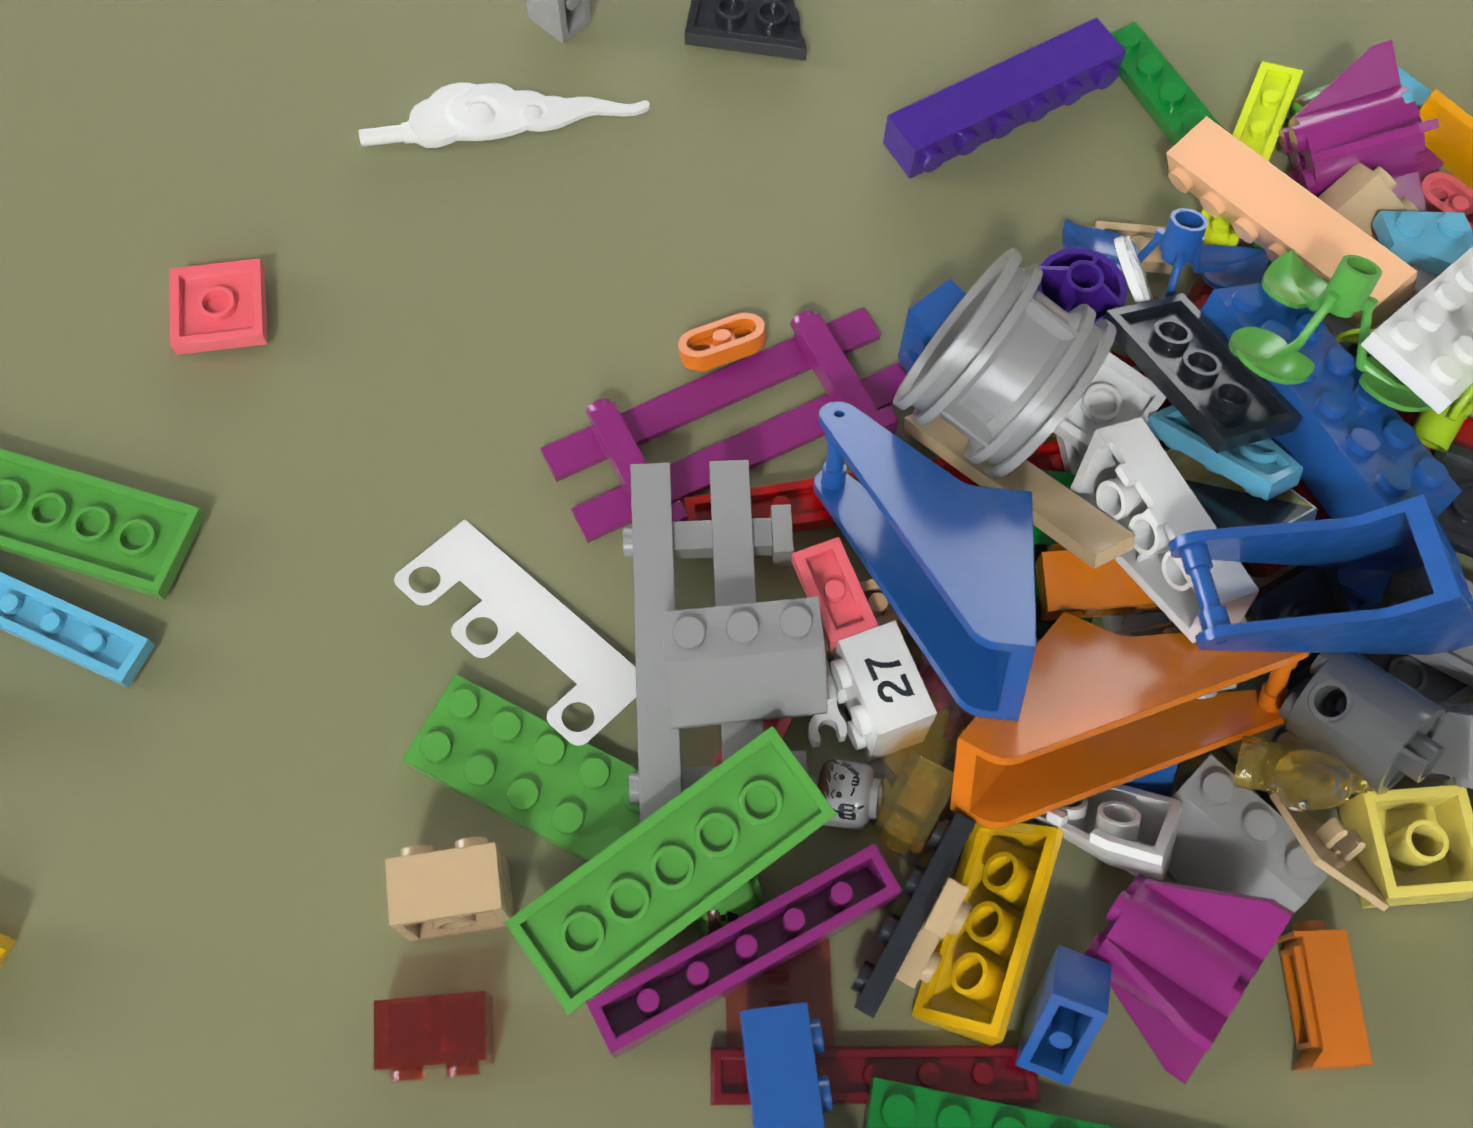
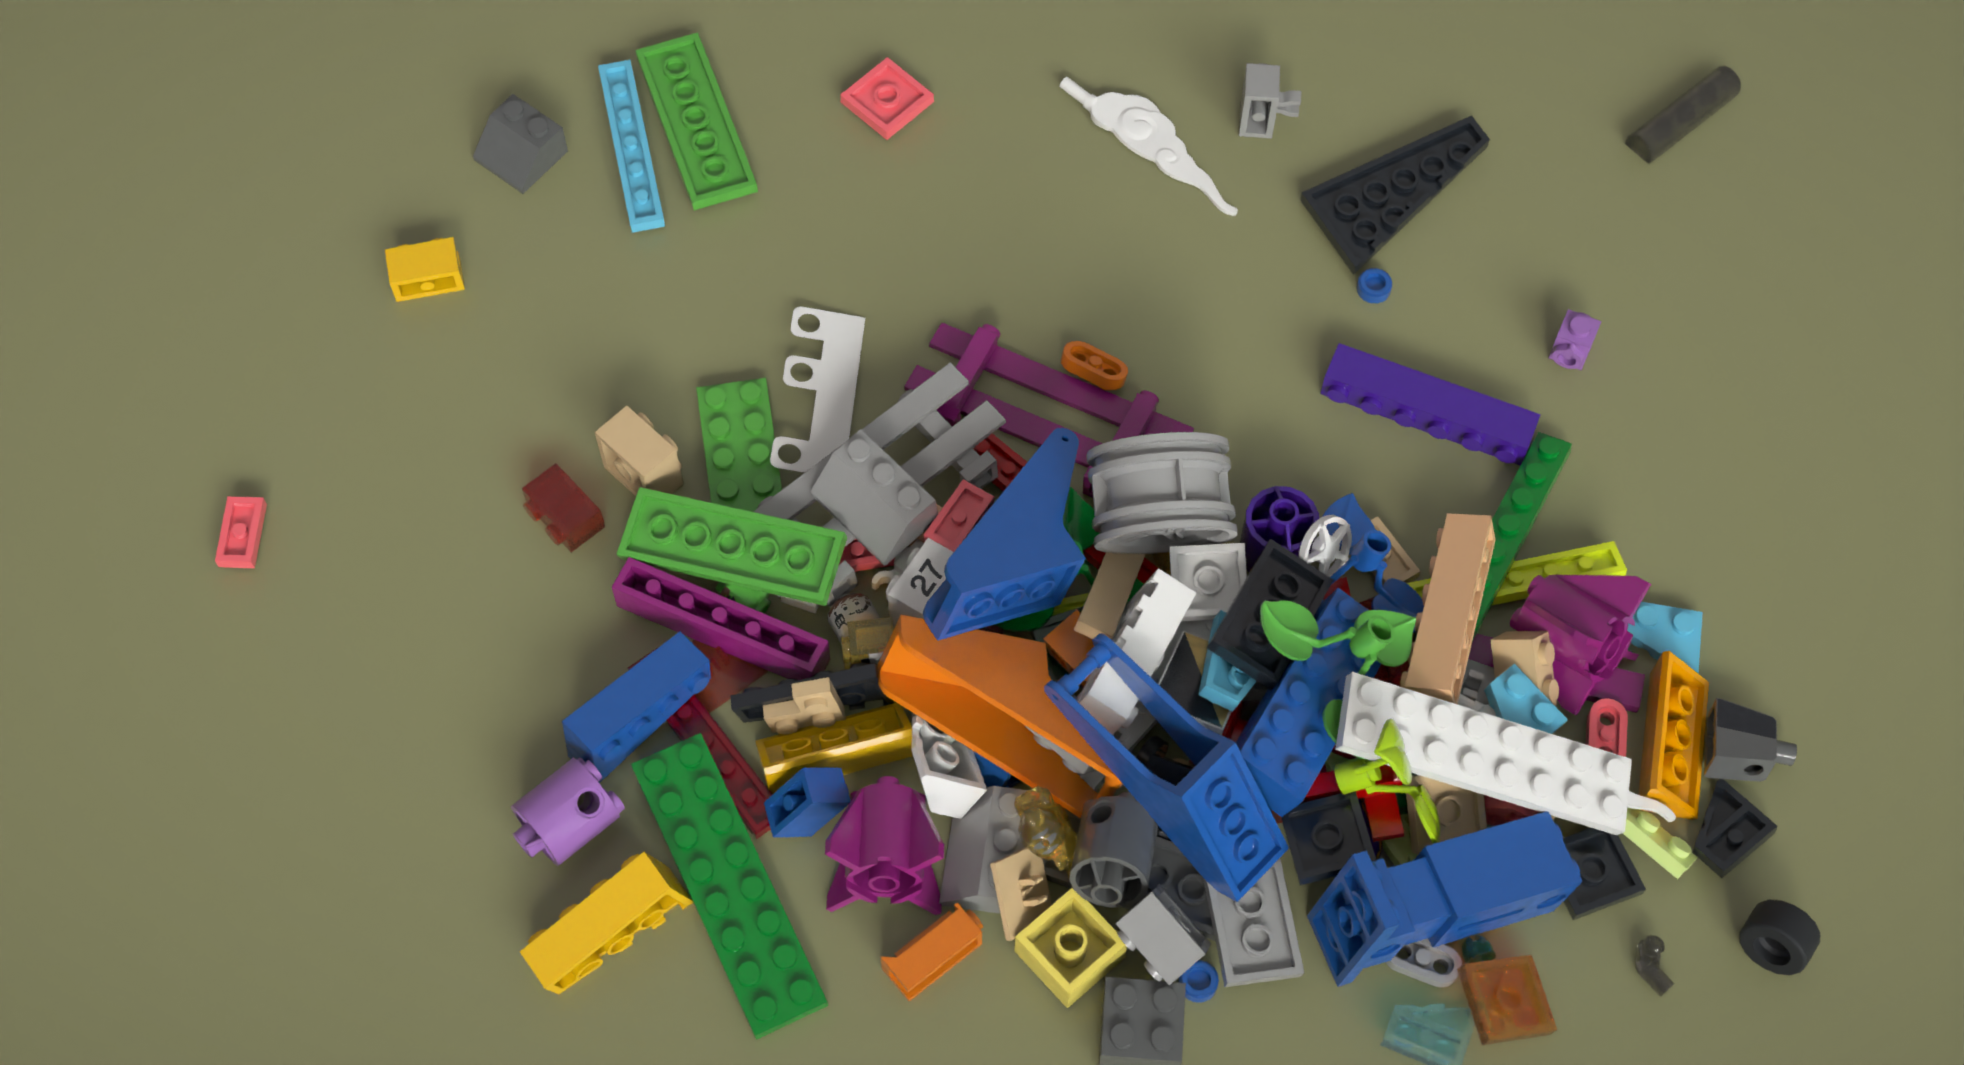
camera: 55 degrees right, 5 degrees down
(831, 53) = (1374, 285): none -> blue tile

